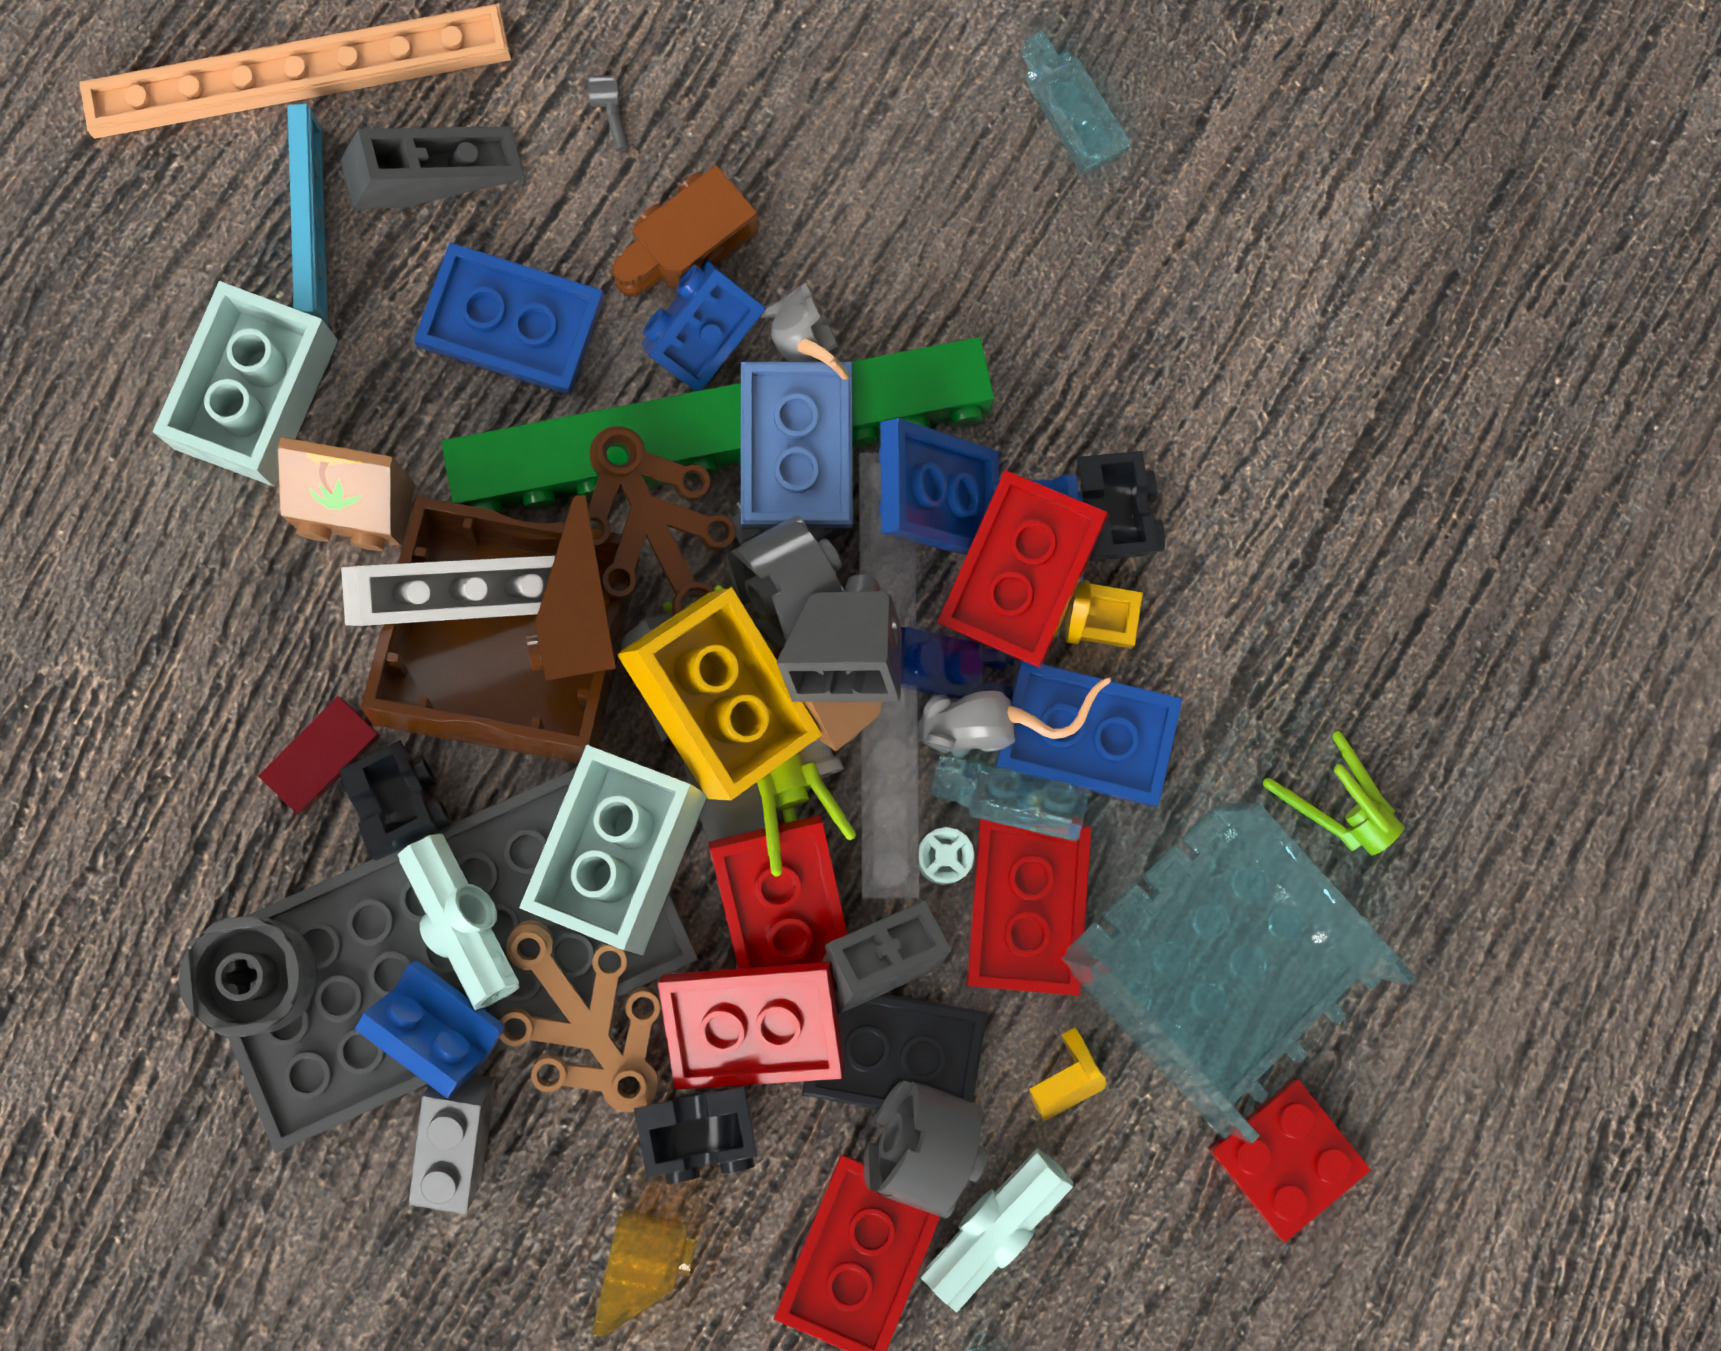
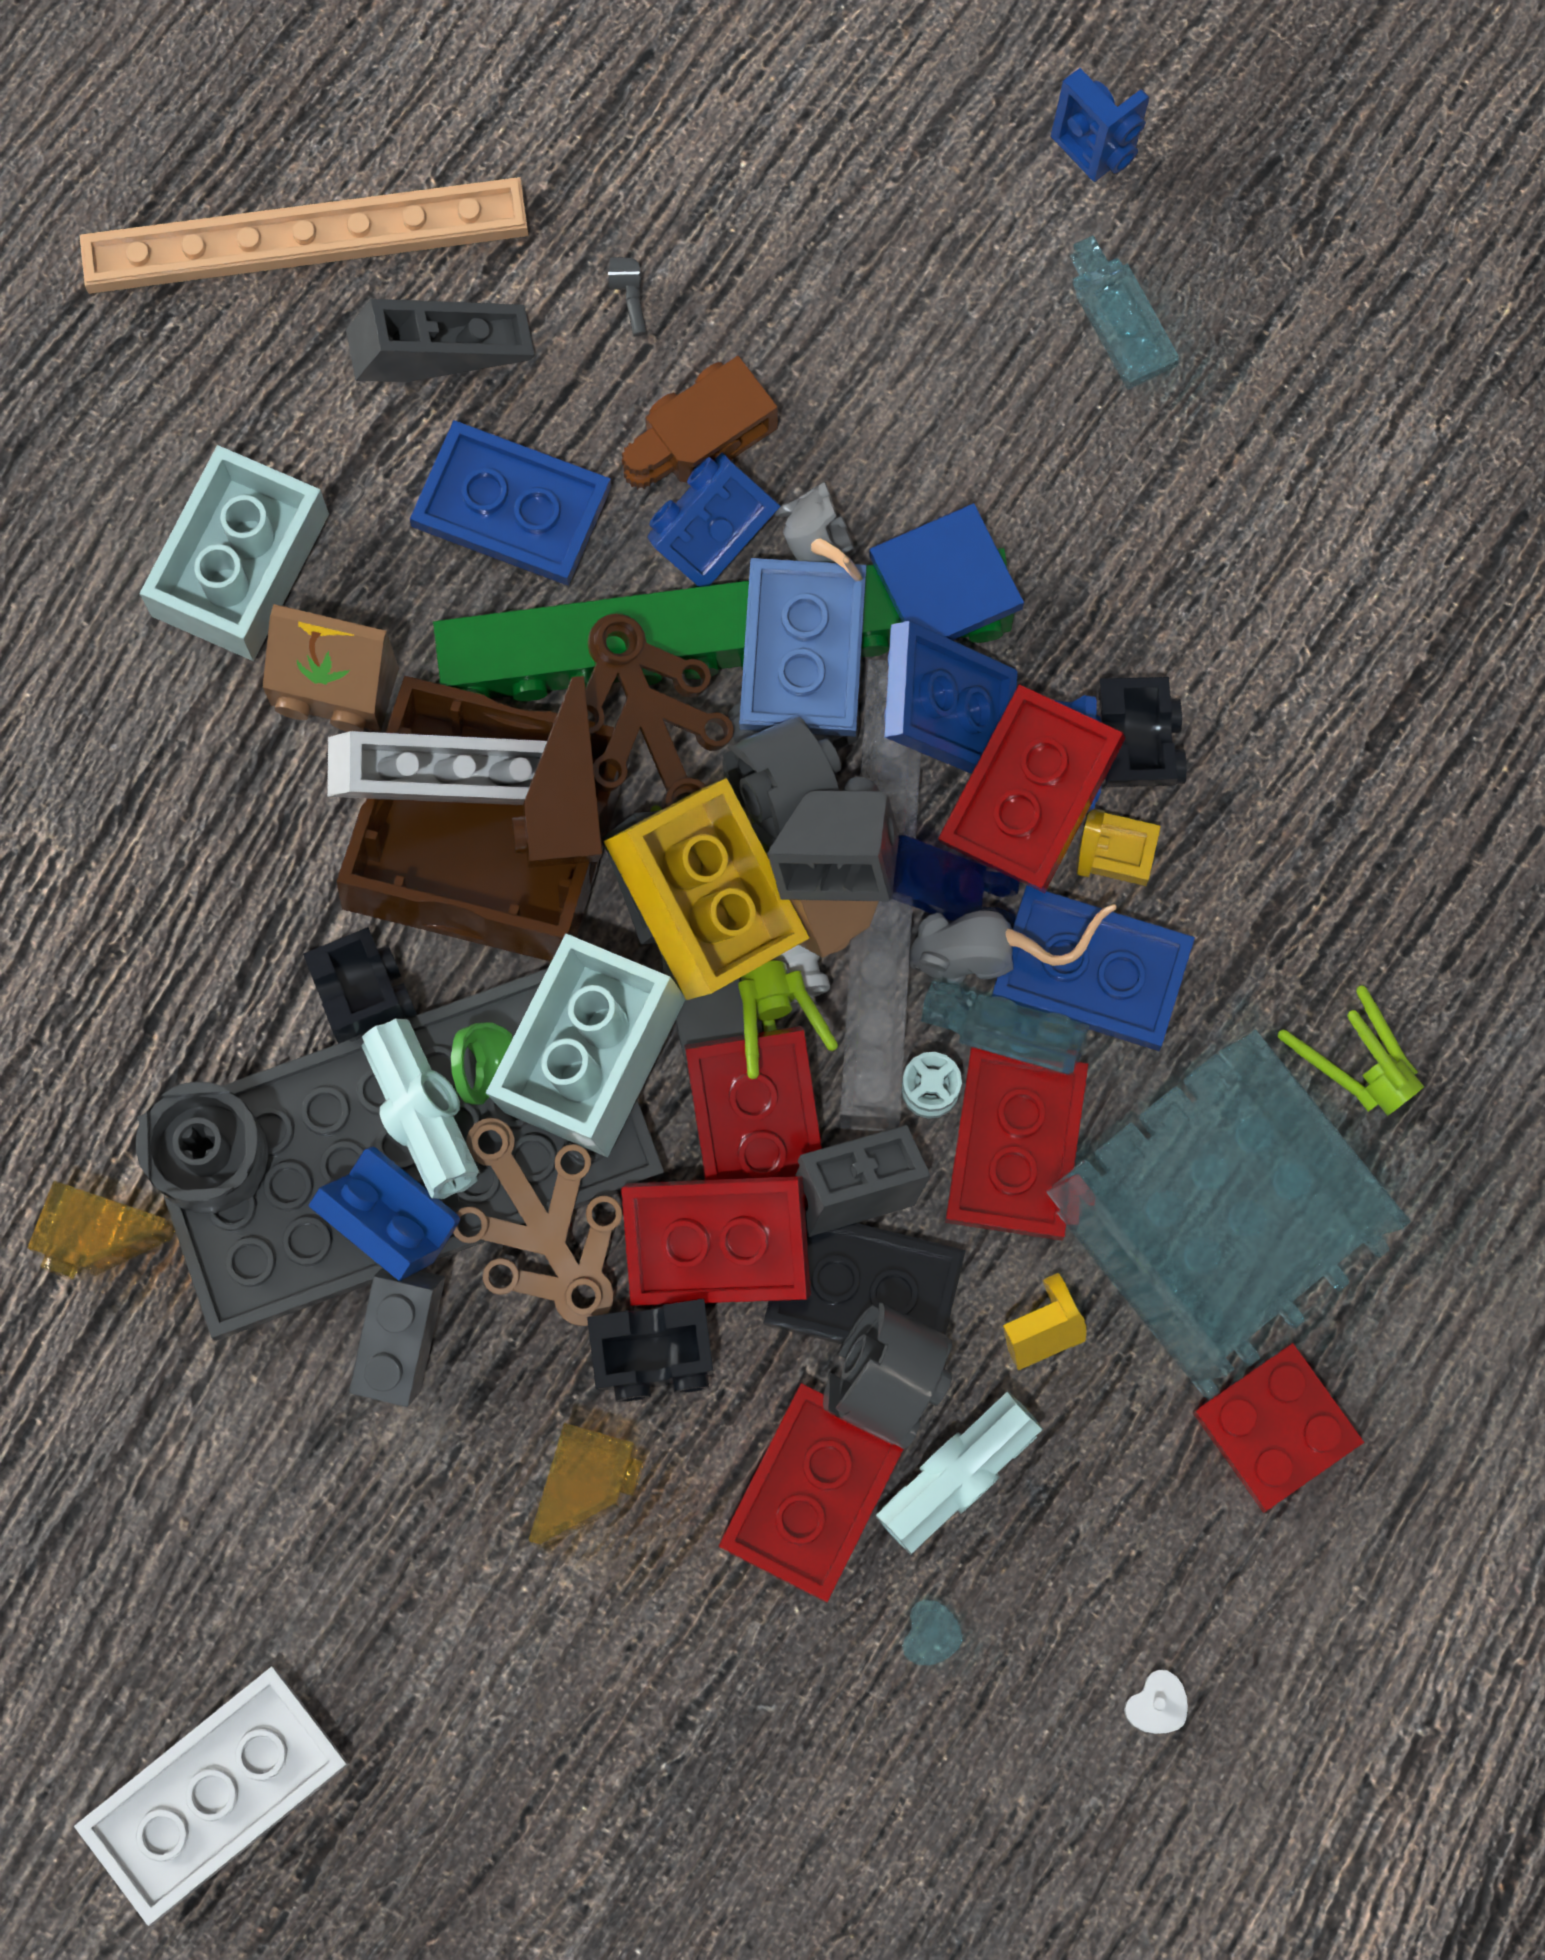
camera: 15 degrees right, 5 degrees down
(150, 1056) = (92, 1232): none -> clear yellow slope
(307, 212) = (308, 378): medium azure tile -> none
(317, 755) = (280, 937): dark red tile -> none
(523, 854) = (489, 1046): none -> bright green piece
(928, 367) = (947, 575): none -> blue tile

